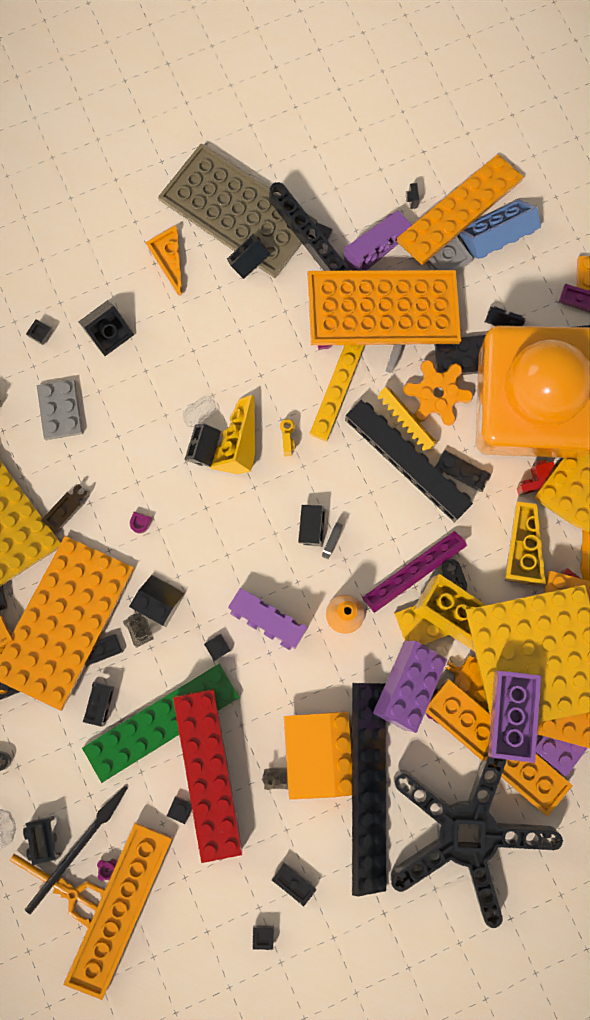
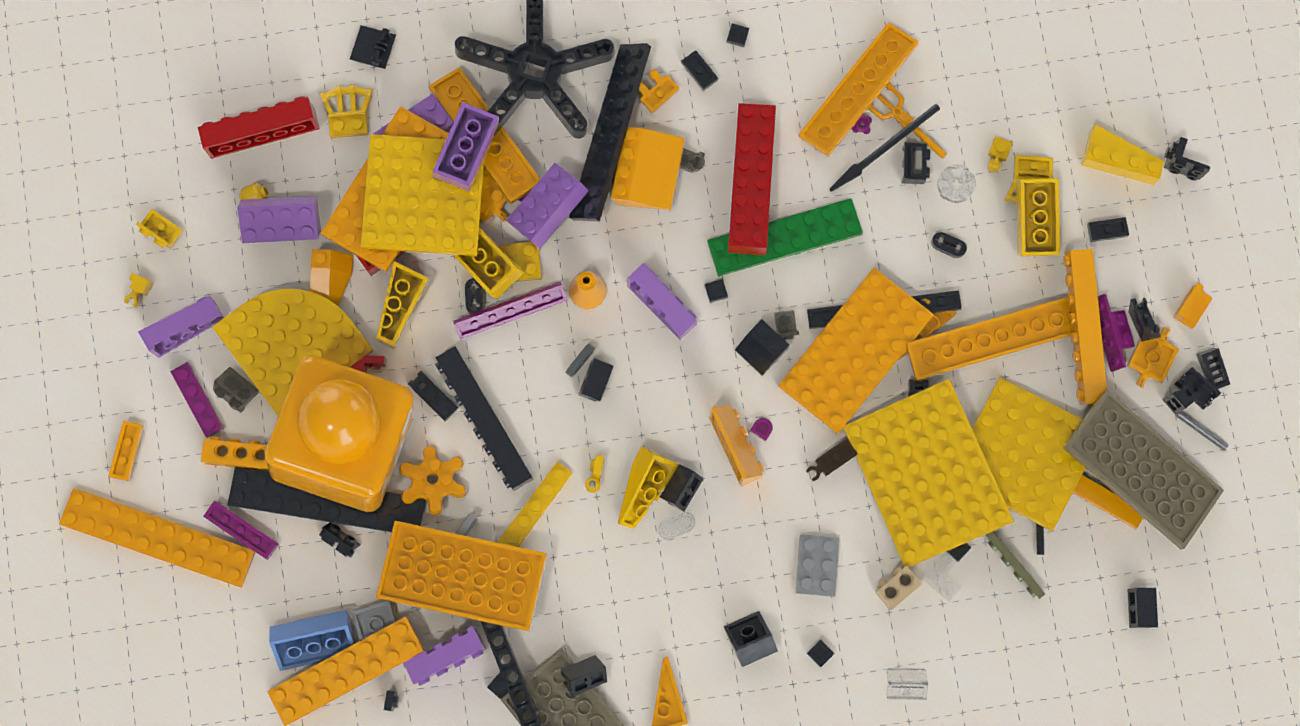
camera: 165 degrees left, 0 degrees up
(98, 704) = (839, 268): black hinge -> none
(159, 495) = (735, 444): none -> light orange slope
(179, 810) = (785, 157): black plate -> none
(329, 845) = (659, 94): none -> light orange plate
(409, 419) = (470, 459): yellow gear -> none

